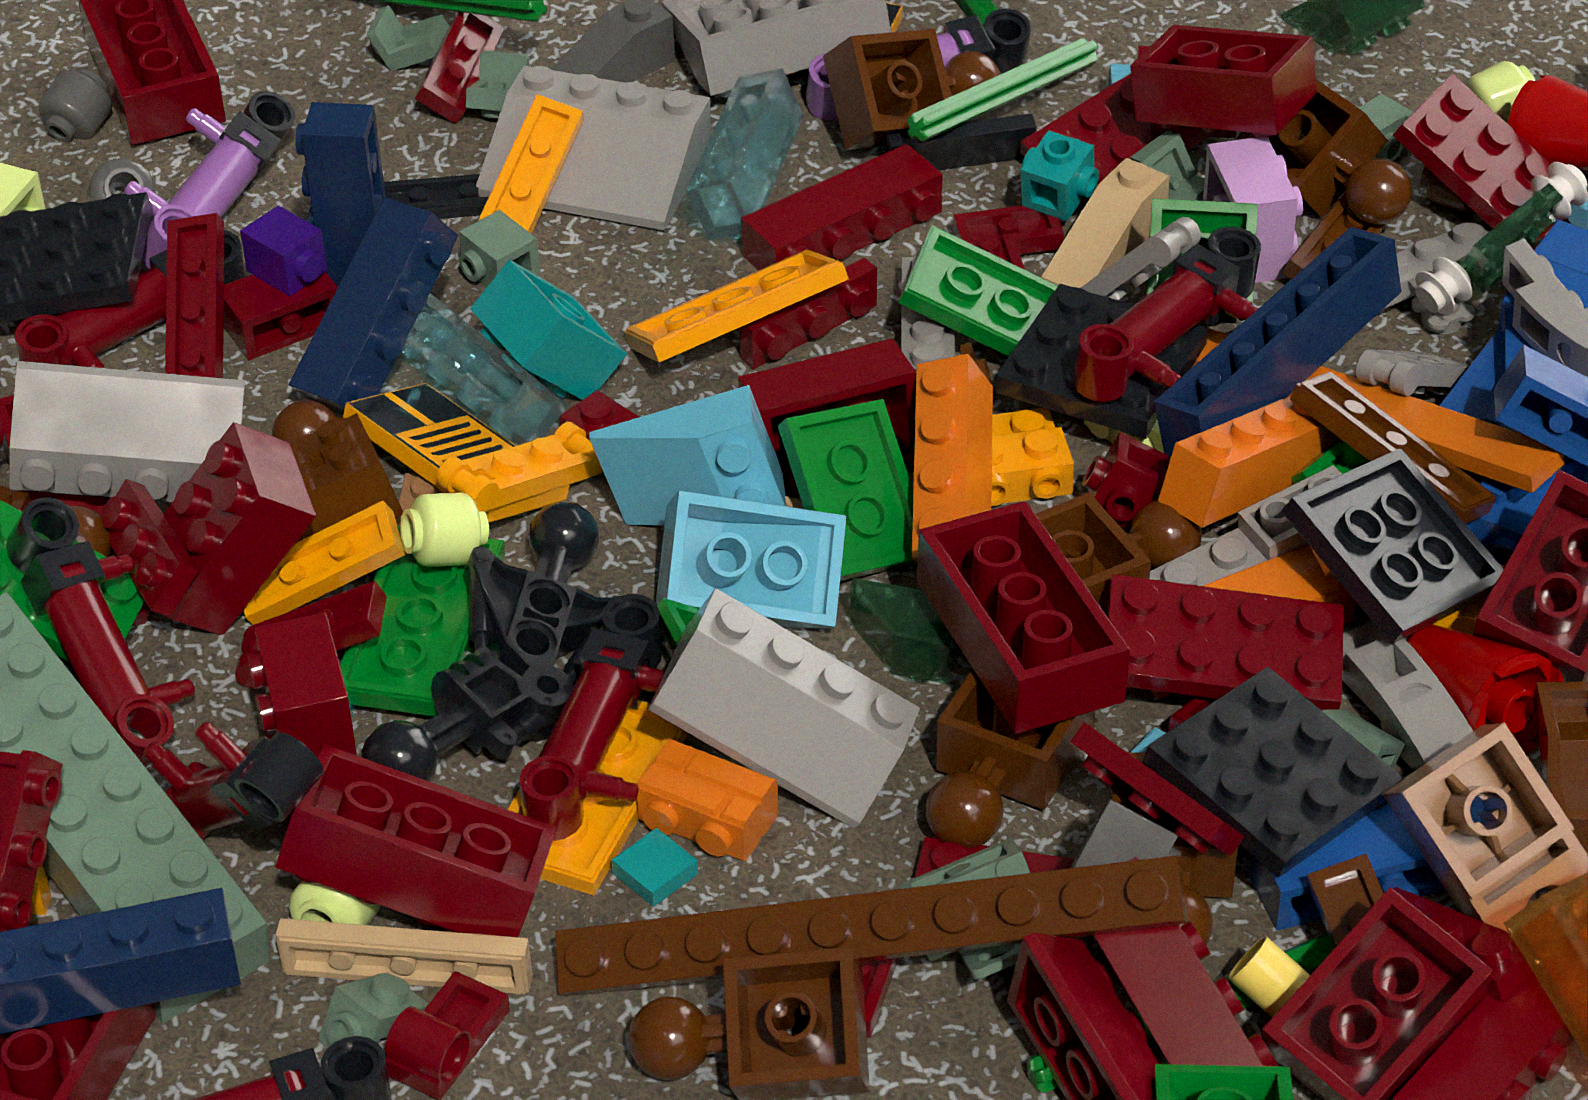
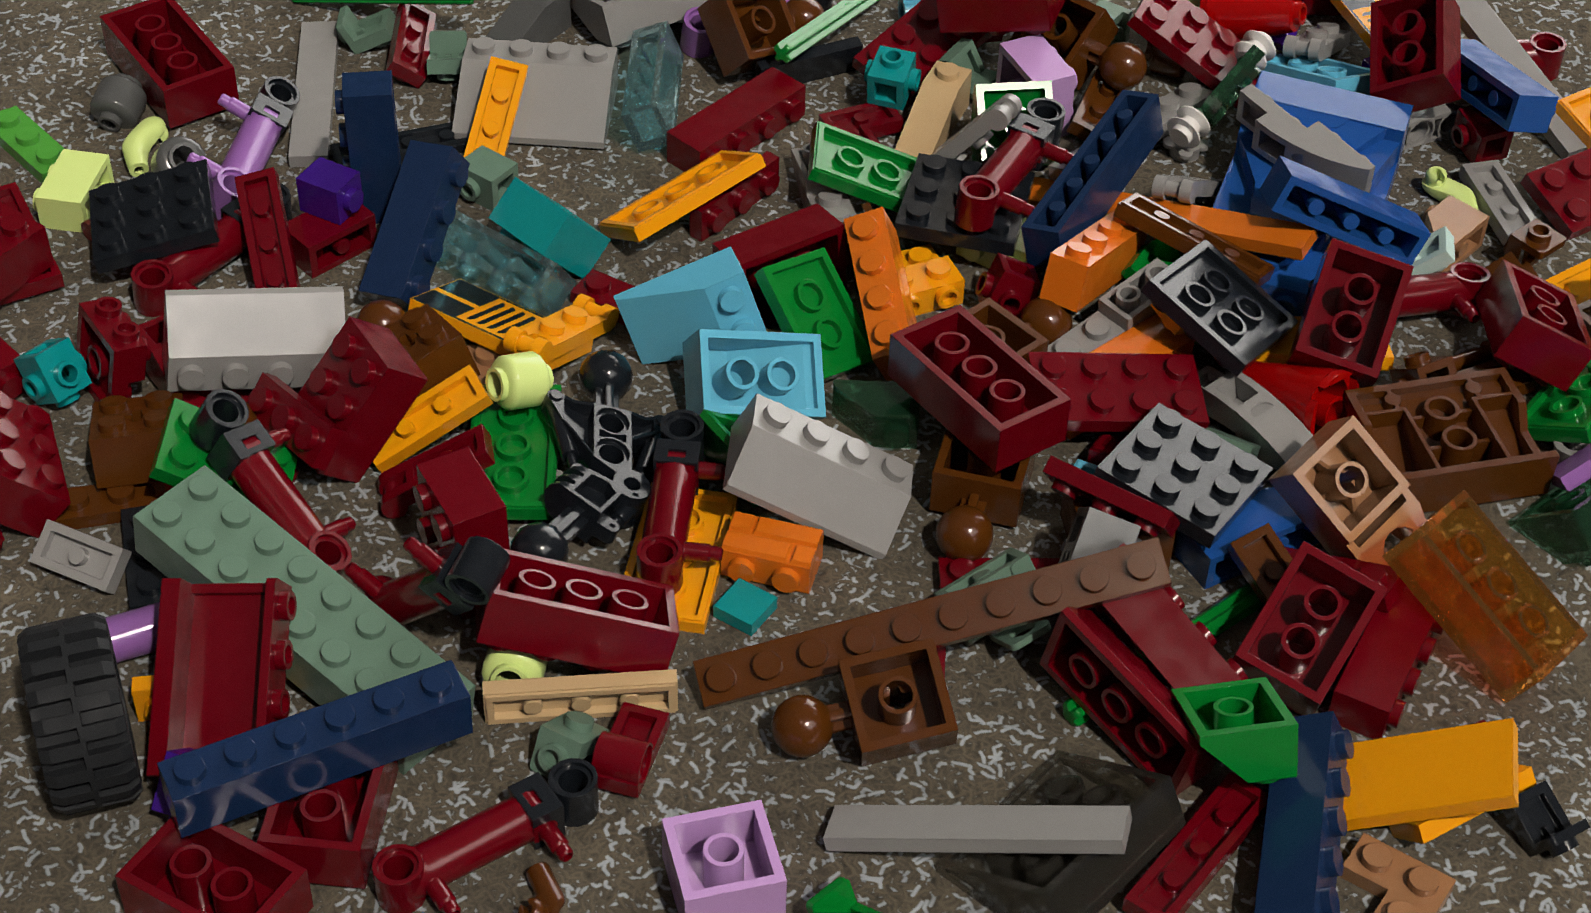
camera: 15 degrees left, 0 degrees up
(87, 158) = (139, 143): none -> yellowish green arm
(334, 79) = (316, 83): none -> light grey tile
(1268, 976) = (1223, 619): light yellow beam -> none

